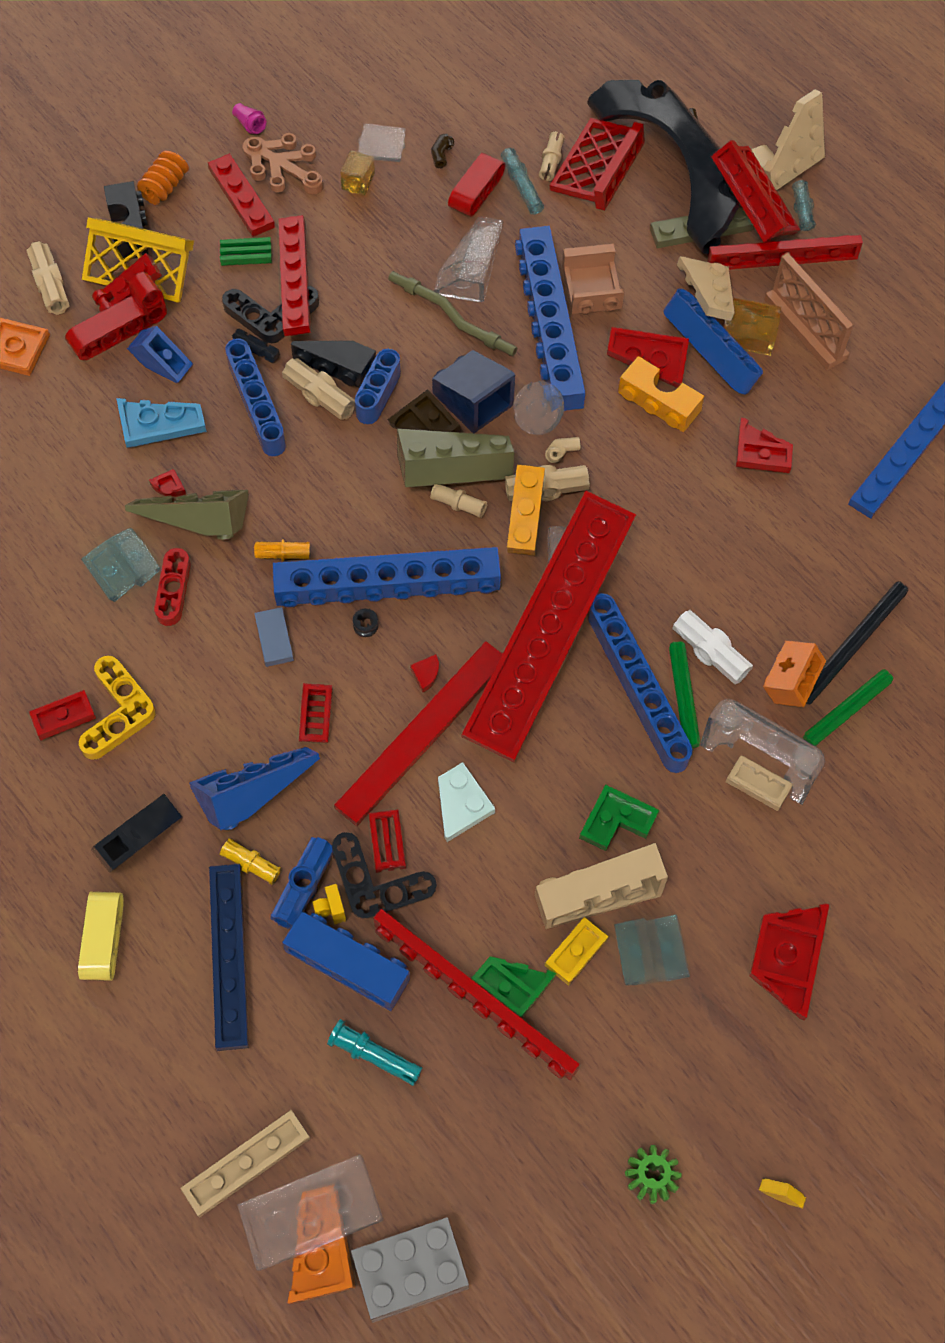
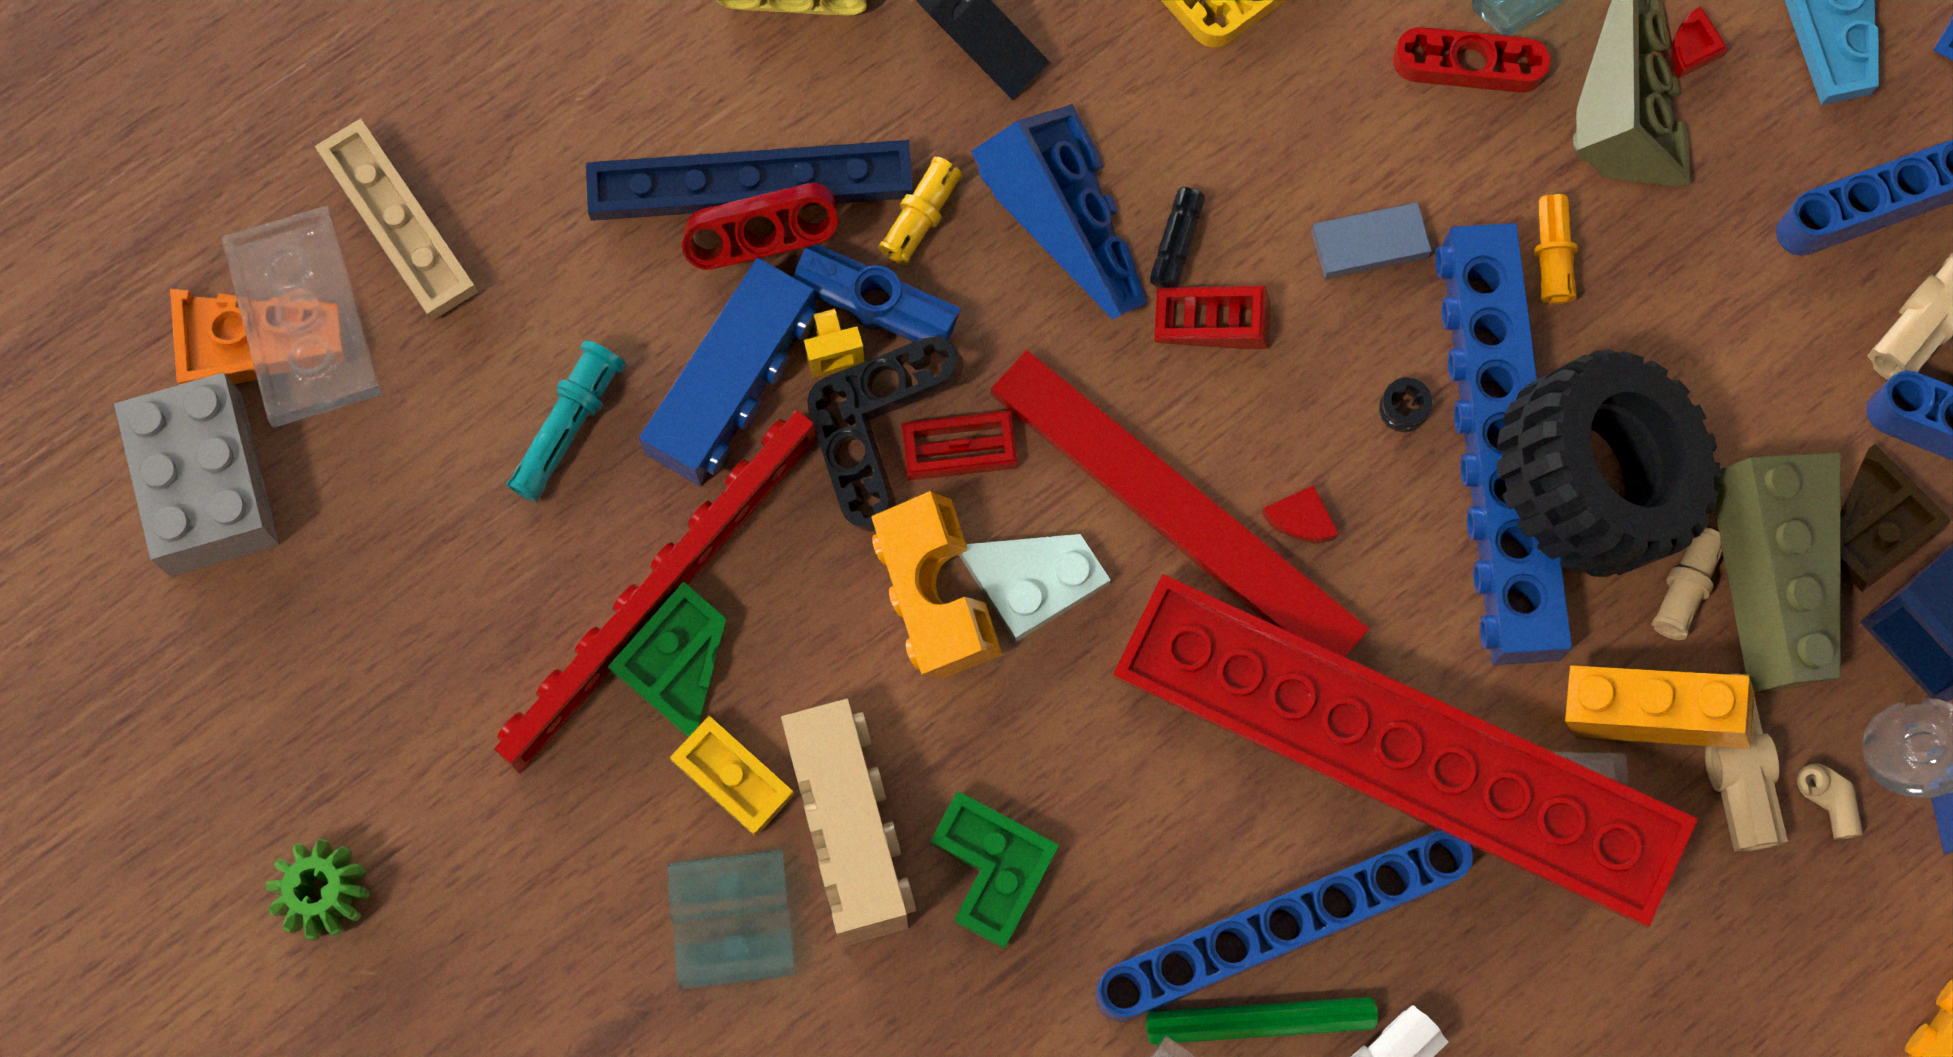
camera: 90 degrees right, 10 degrees up
(256, 926) = (741, 245): none -> red beam
(270, 730) = (1177, 238): none -> black axle
(406, 523) = (1657, 444): none -> black tyre
(496, 841) = (914, 545): none -> light orange arch

